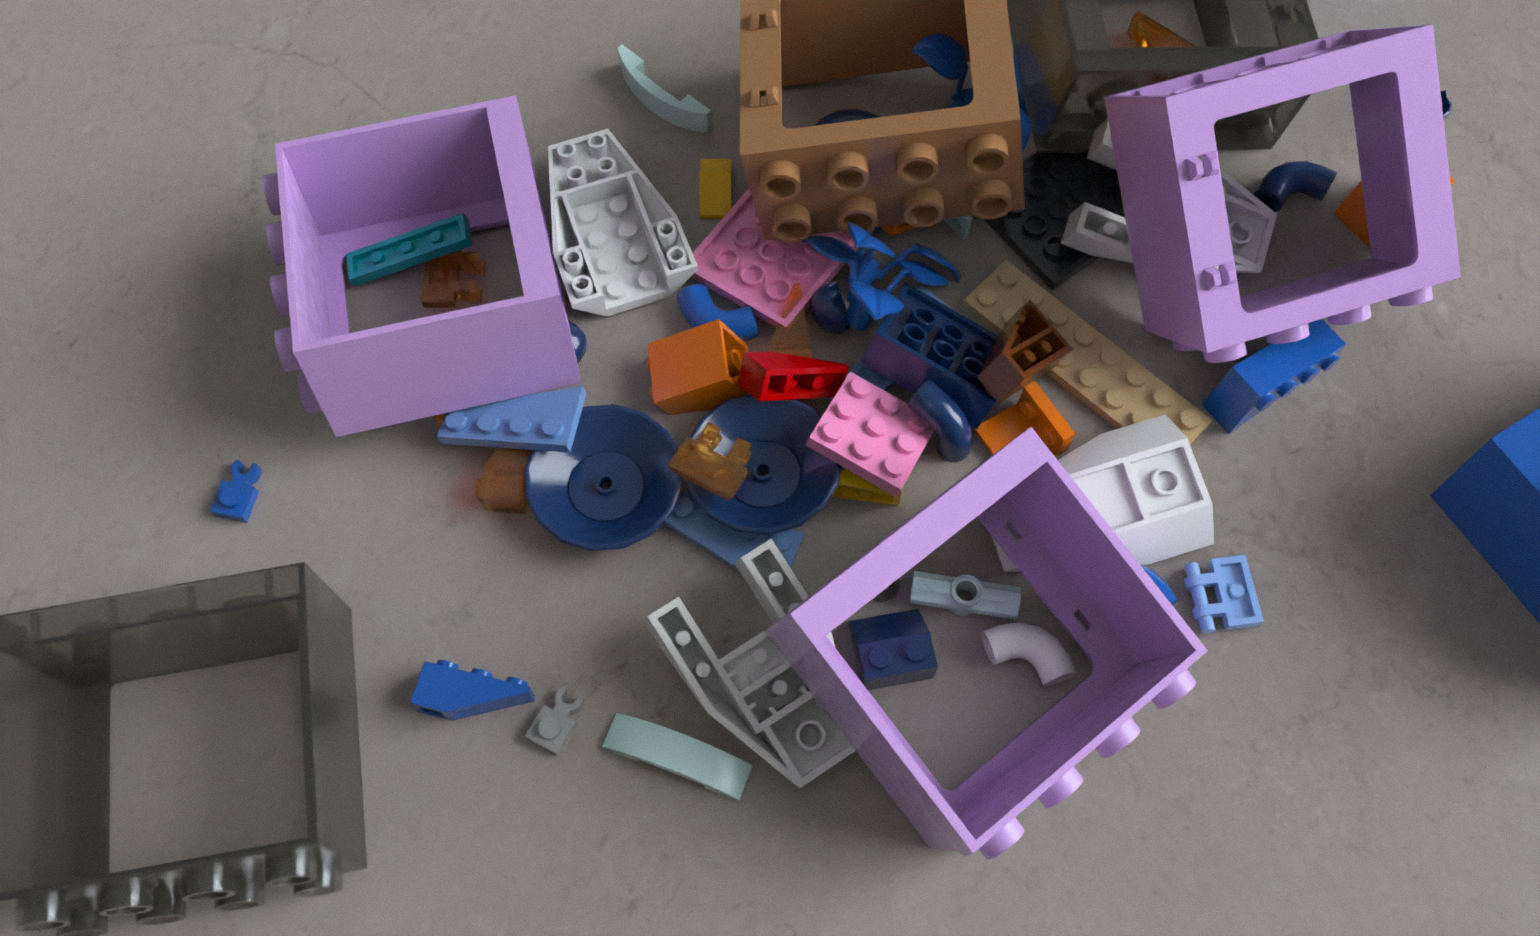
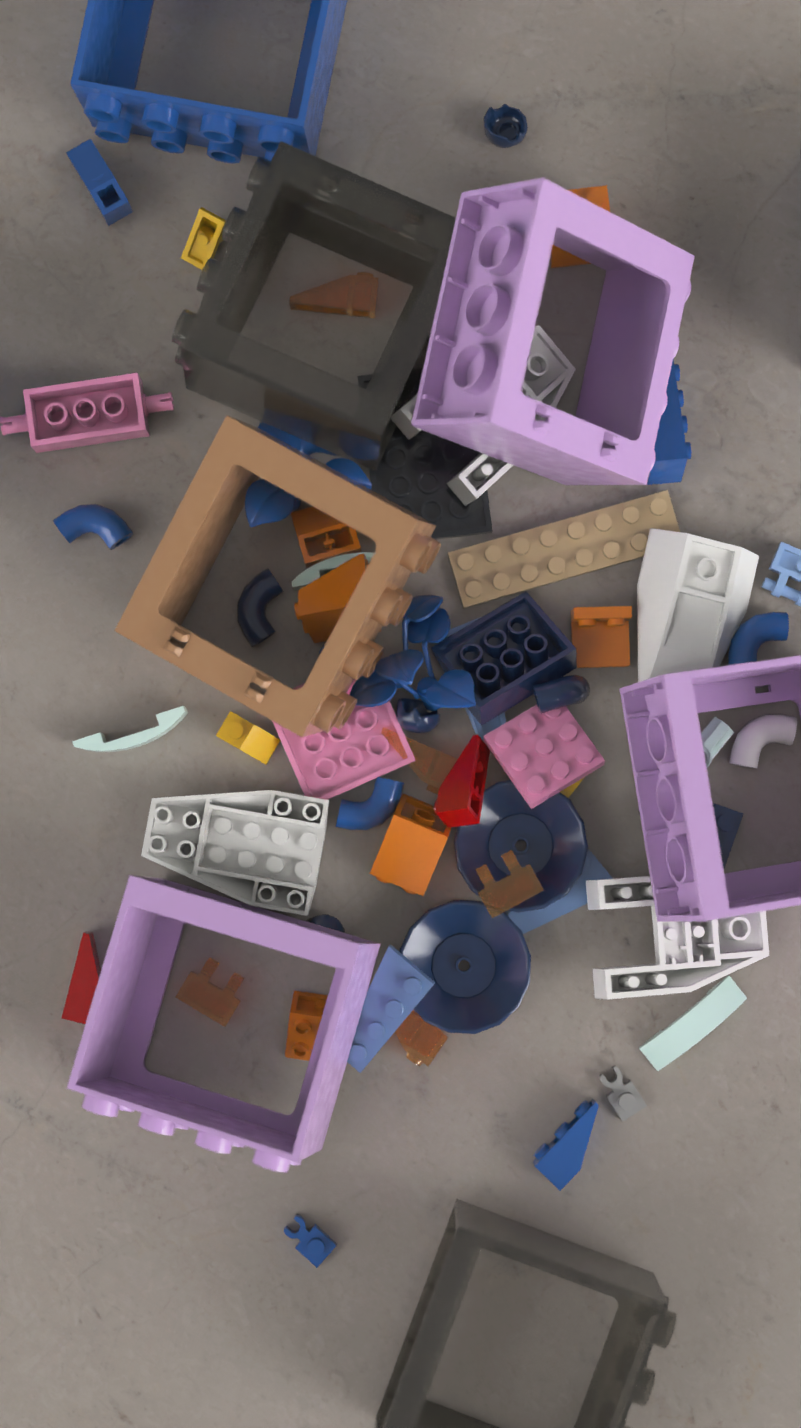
camera: 65 degrees left, 20 degrees up
(409, 249) = (175, 1014): teal plate -> none
(1022, 353) = (548, 603): reddish brown wedge -> none

